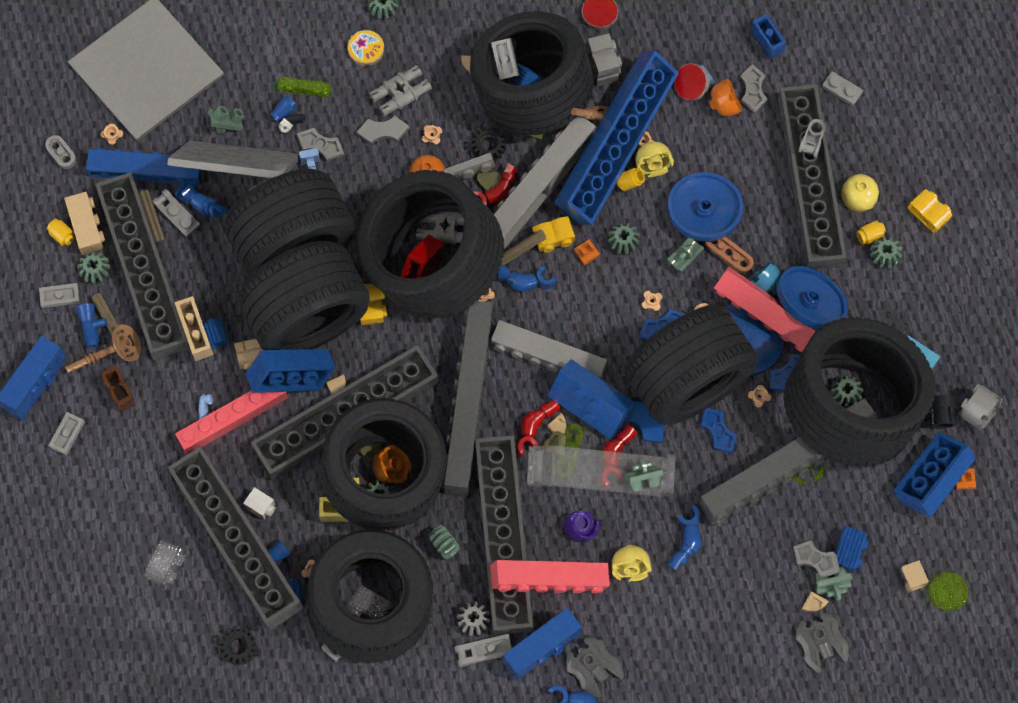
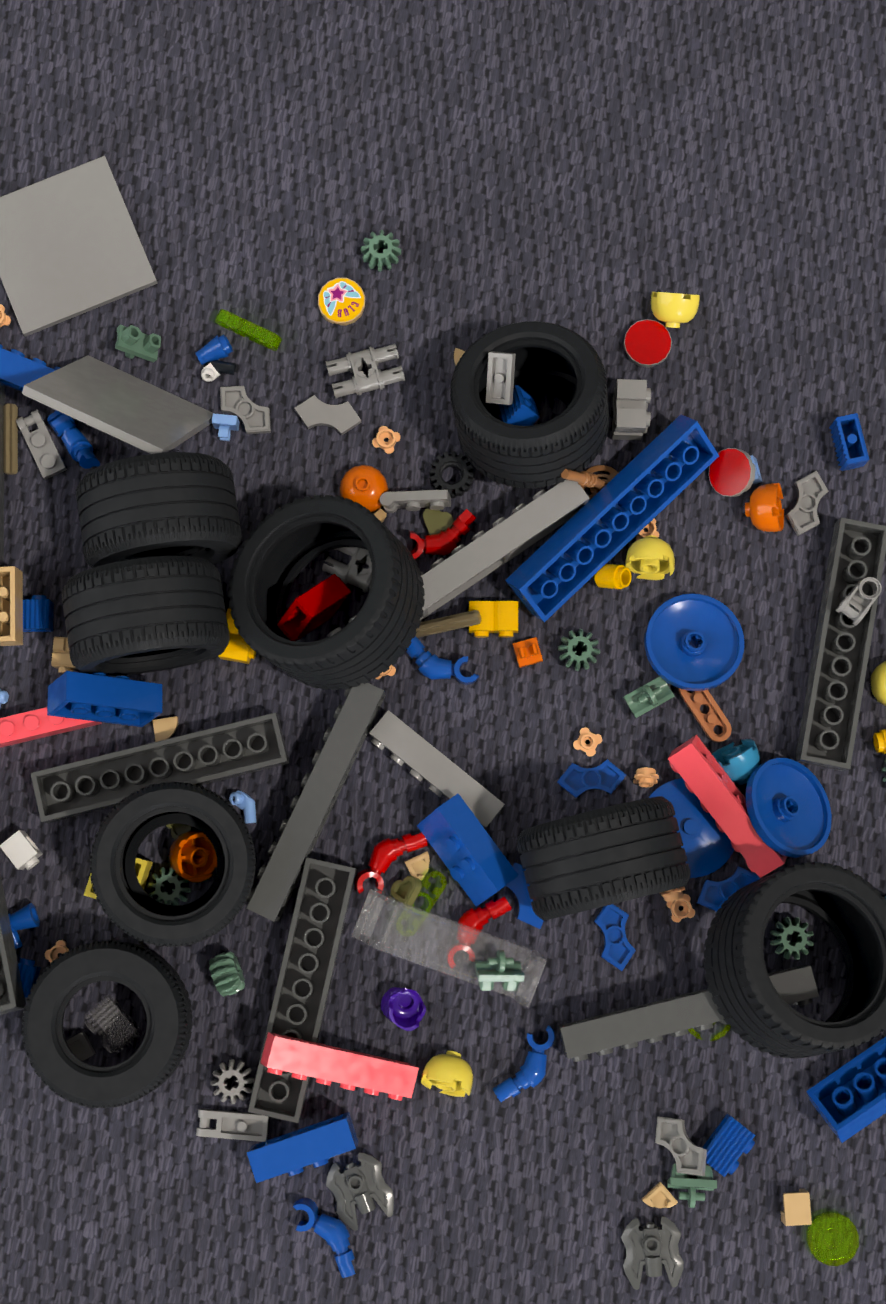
camera: 20 degrees right, 10 degrees up
(748, 385) = (674, 894): none -> light nougat plate

